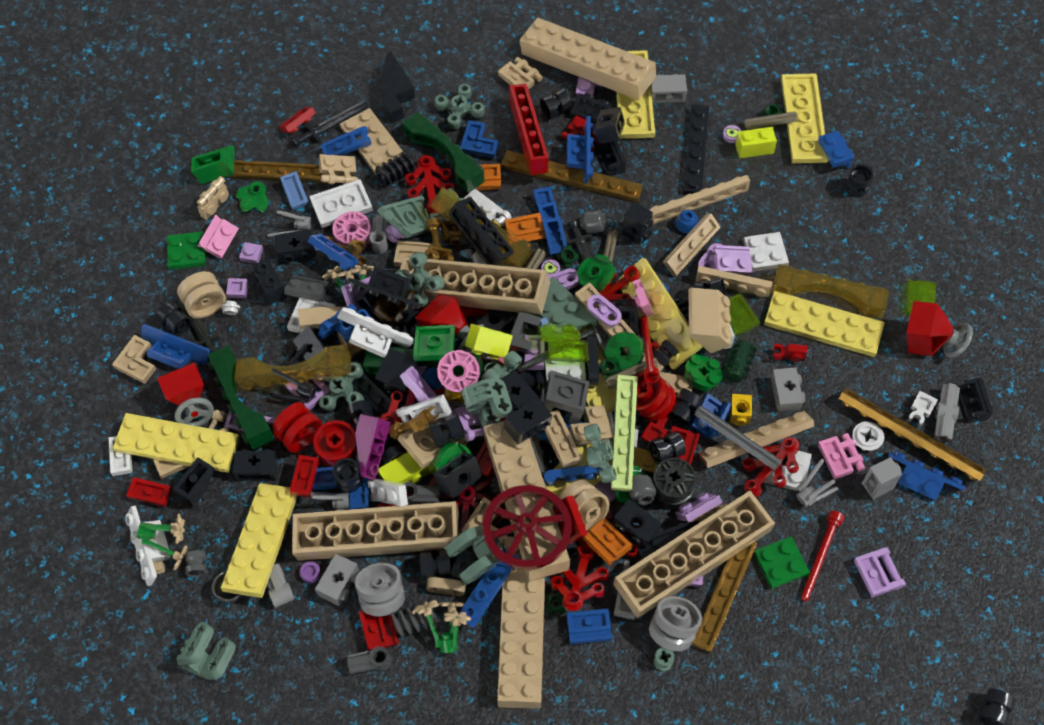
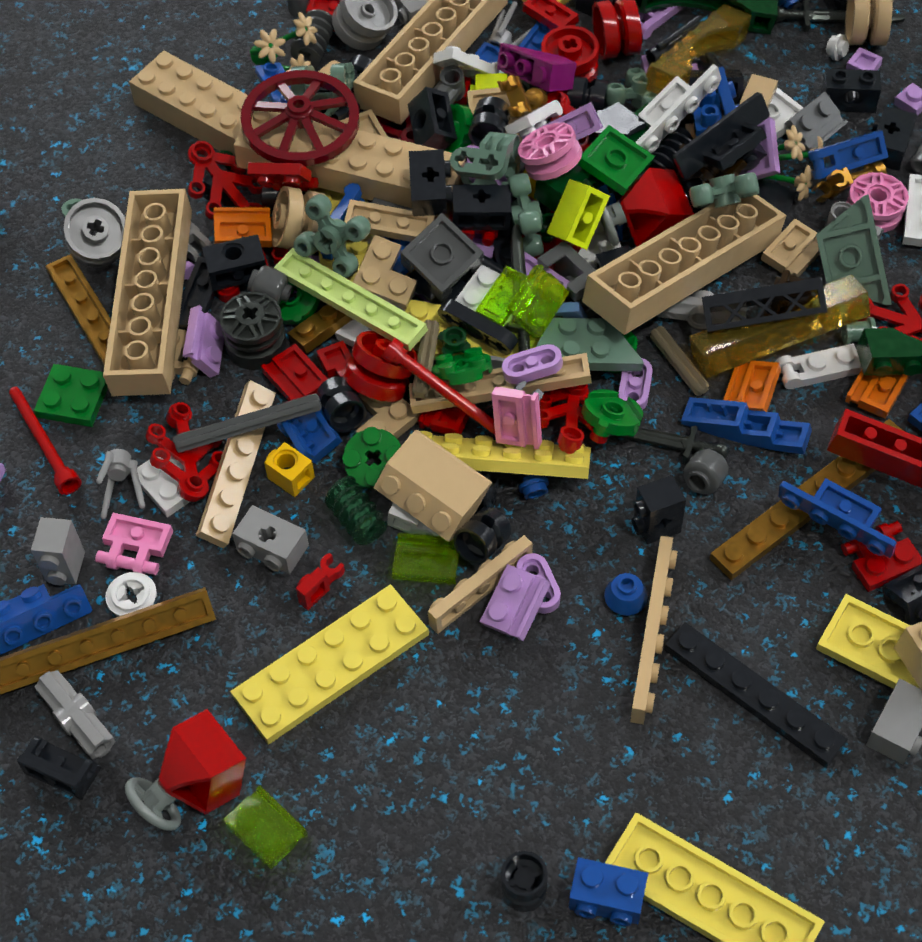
camera: 125 degrees right, 5 degrees down
(347, 475) = (518, 31): black wheel -> none
(436, 251) = (778, 255): pearl gold bar -> none
(551, 267) = (666, 387): tile -> none
(567, 251) = (671, 413): dark green plate -> none
(589, 626) = (170, 172): blue plate -> none
(609, 125) = (862, 570): black brick -> none
(610, 244) = (635, 459): dark tan axle -> none
(611, 158) = (813, 566): black hinge -> none
(665, 357) = (427, 416): black wheel -> none
(667, 447) = (297, 339): black wheel -> none
(691, 244) = (581, 571): tan plate -> none
(730, 133) = (751, 765): tile -> none
(756, 142) = (705, 778): neon yellow brick -> none
(766, 251) = (502, 668): white plate -> none
(771, 120) = (735, 832): dark tan axle -> none
(773, 109) = (755, 845): dark green plate -> none
(866, 298) = (317, 741): clear yellow arch -> none
(922, 407) = (109, 691): white plate -> none

